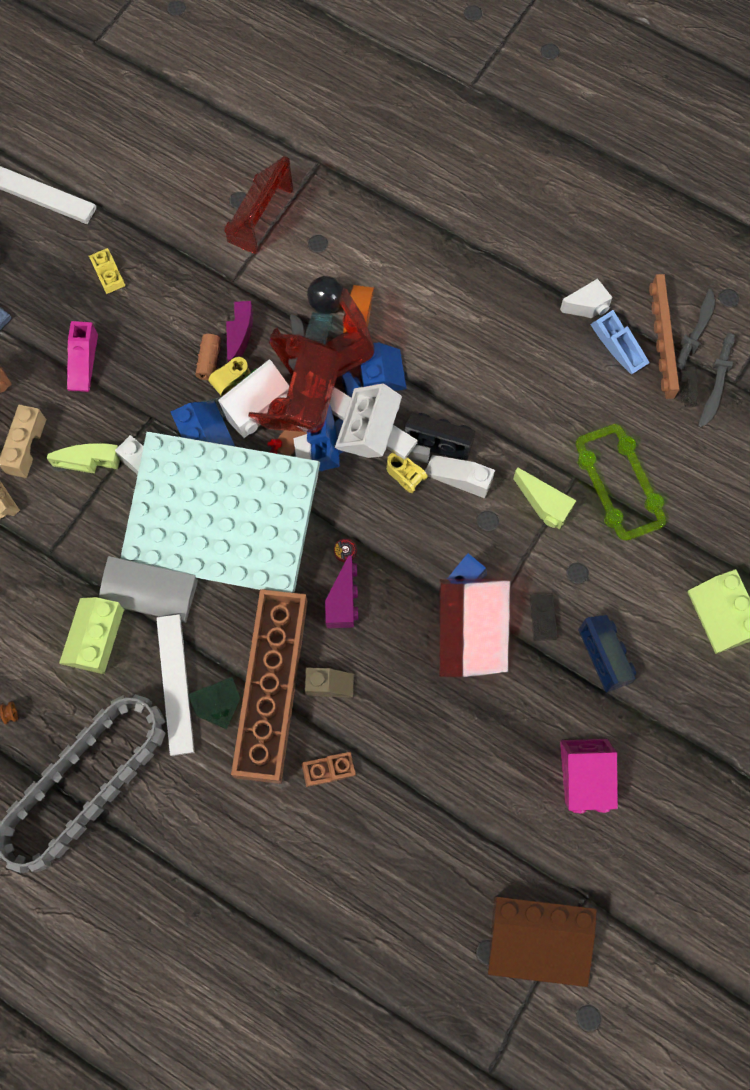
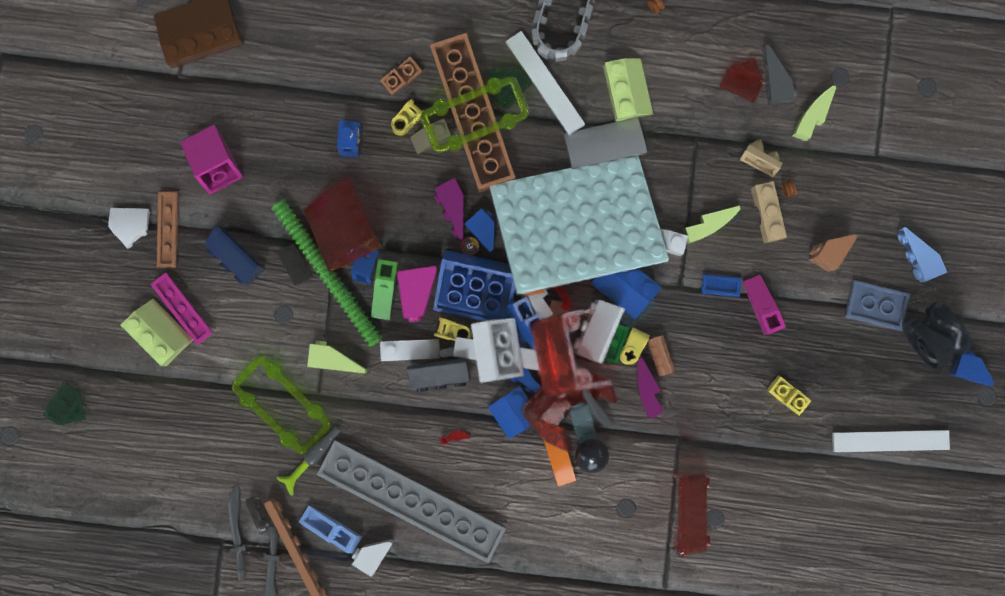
camera: 155 degrees right, 15 degrees up
(111, 397) = (721, 285): none -> blue tile
(301, 700) = (507, 122): none -> clear neon green bar
(322, 560) = (482, 227): none -> blue slope
(343, 717) = (410, 115): none -> light yellow piece
(360, 504) = (474, 287): none -> blue slope
(418, 725) = (349, 138): none -> blue torso
(422, 523) = (416, 291): none -> dark pink slope
(451, 374) = (454, 435): none -> red piece
(456, 545) = (384, 289): none -> bright green slope
(507, 571) = (330, 278): none -> bright green piece
(527, 335) = (411, 501): none -> light grey plate
(611, 416) = (311, 457): none -> dark grey piece
(670, 721) = (167, 229): none -> nougat tile
(688, 626) = (181, 308): none -> dark pink plate
(713, 746) = (128, 224): none -> white slope

